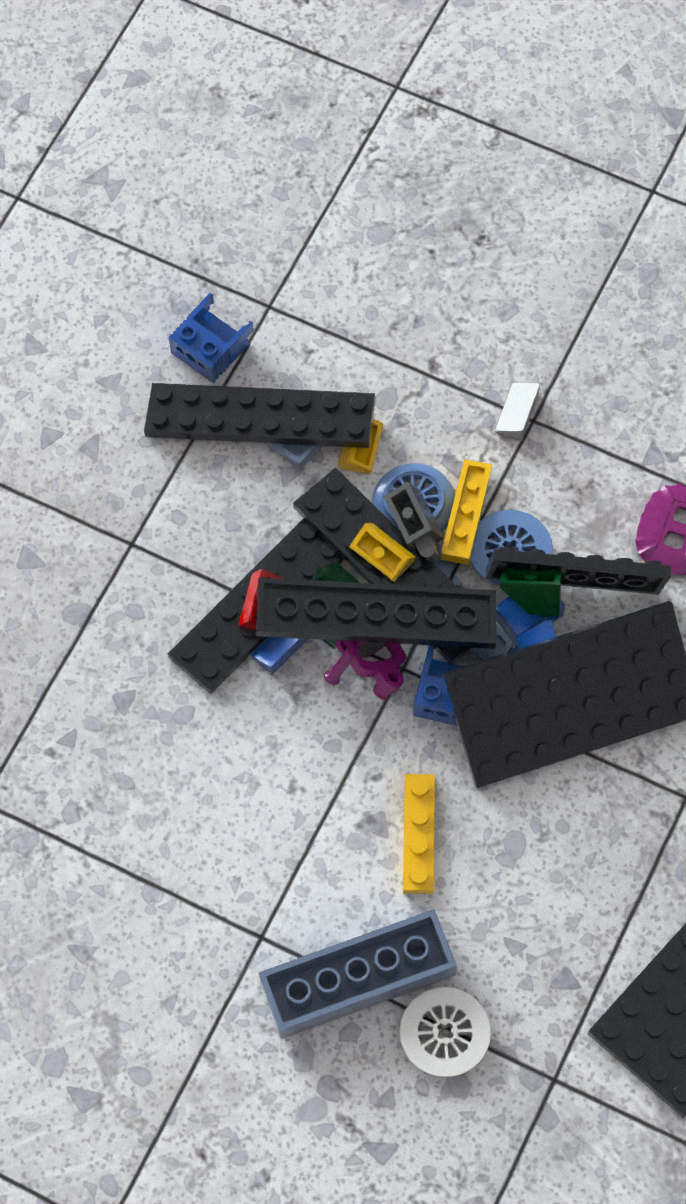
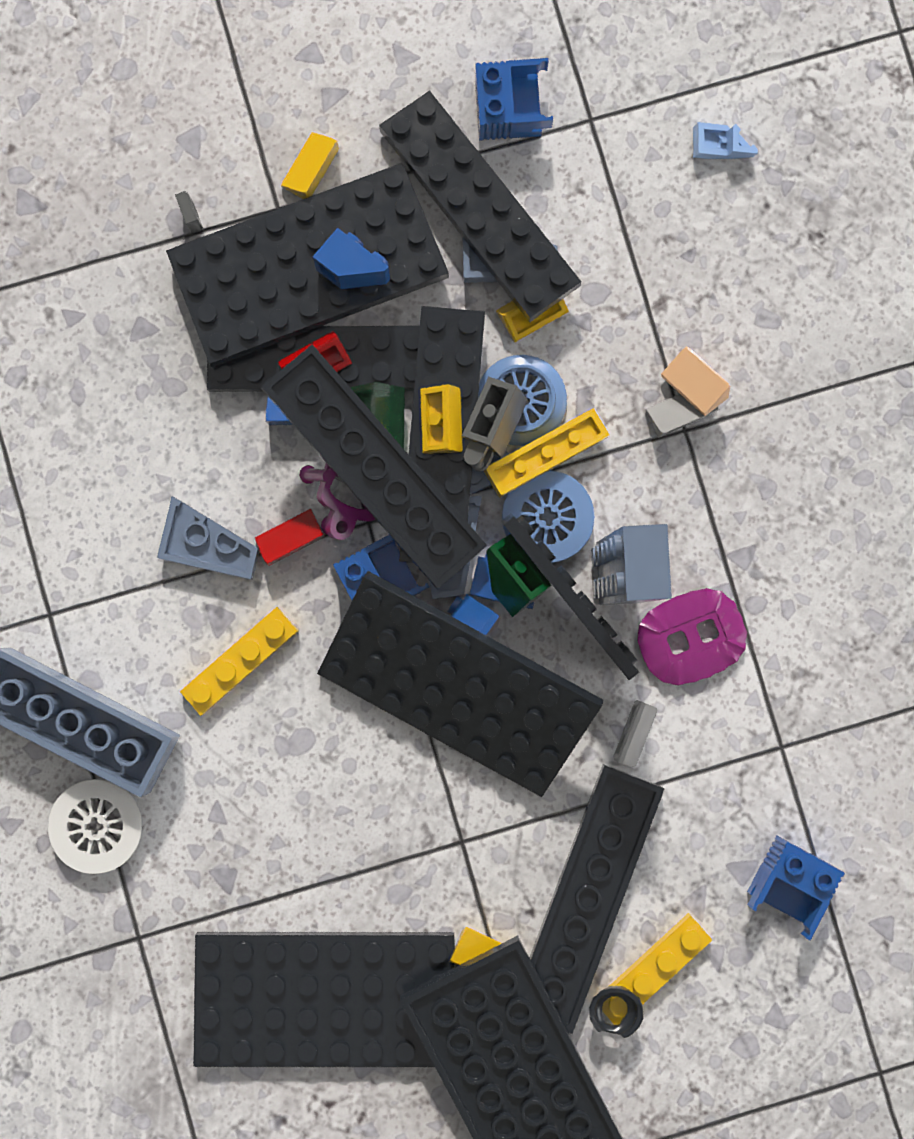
camera: 40 degrees right, 20 degrees up
(79, 597) = (189, 212): none -> dark grey tile
(124, 497) = (310, 165): none -> yellow slope
(190, 554) = (260, 275): none -> black plate
(224, 517) = (349, 264): none -> blue slope
(315, 784) = (203, 543): none -> sand blue wing
(363, 243) = (720, 142): none -> light blue slope
(364, 725) = (289, 537): none -> red slope
(507, 382) = (696, 381): none -> light nougat slope
(596, 501) = (632, 565): none -> sand blue brick

